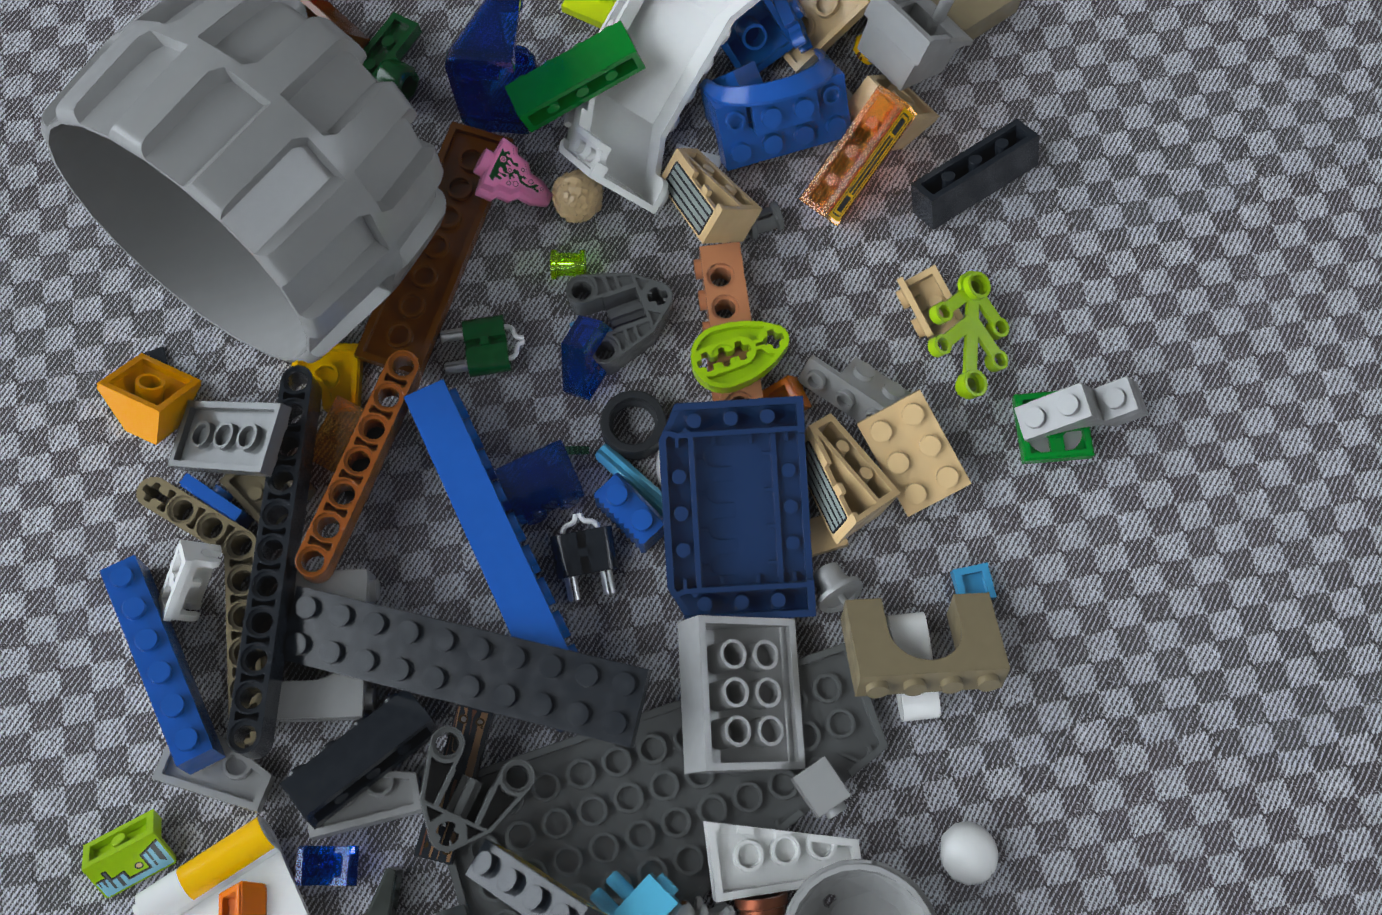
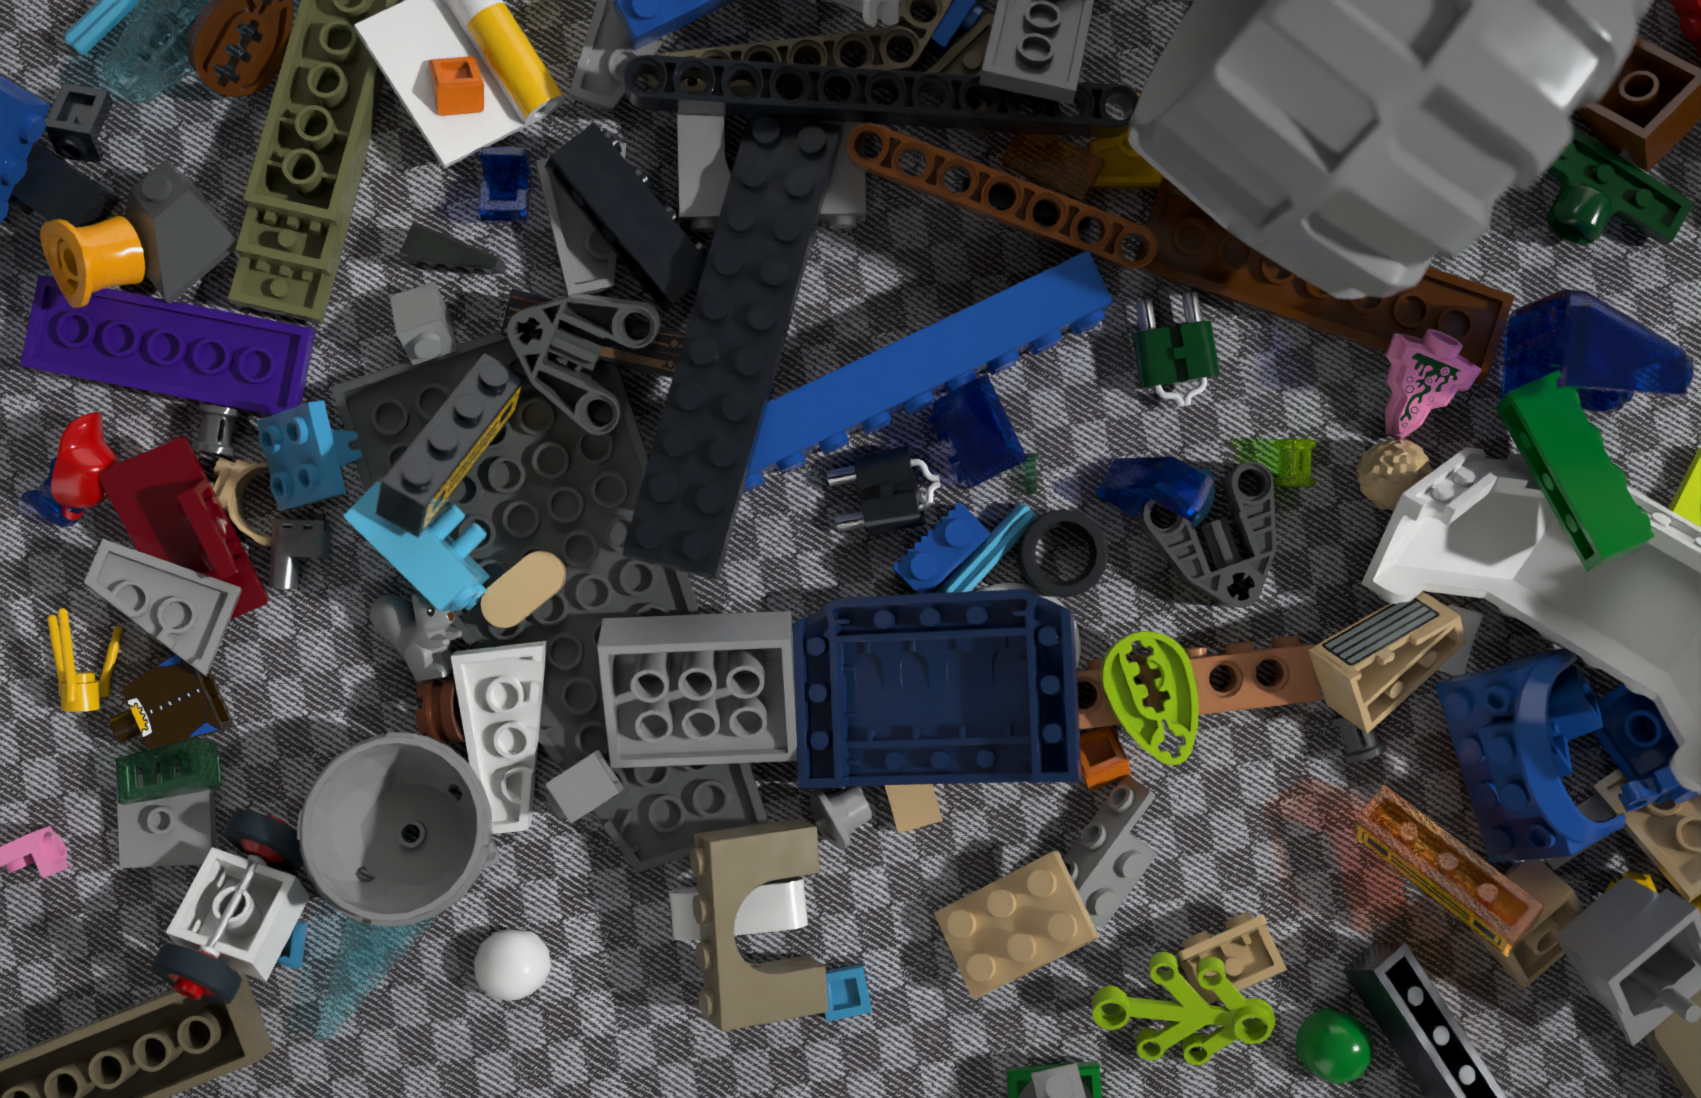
camera: 90 degrees right, 15 degrees up
(661, 843) = (523, 589): none -> tan tile
(844, 479) = (979, 831): tan wedge -> none
(988, 236) = (1334, 1046): none -> green hair

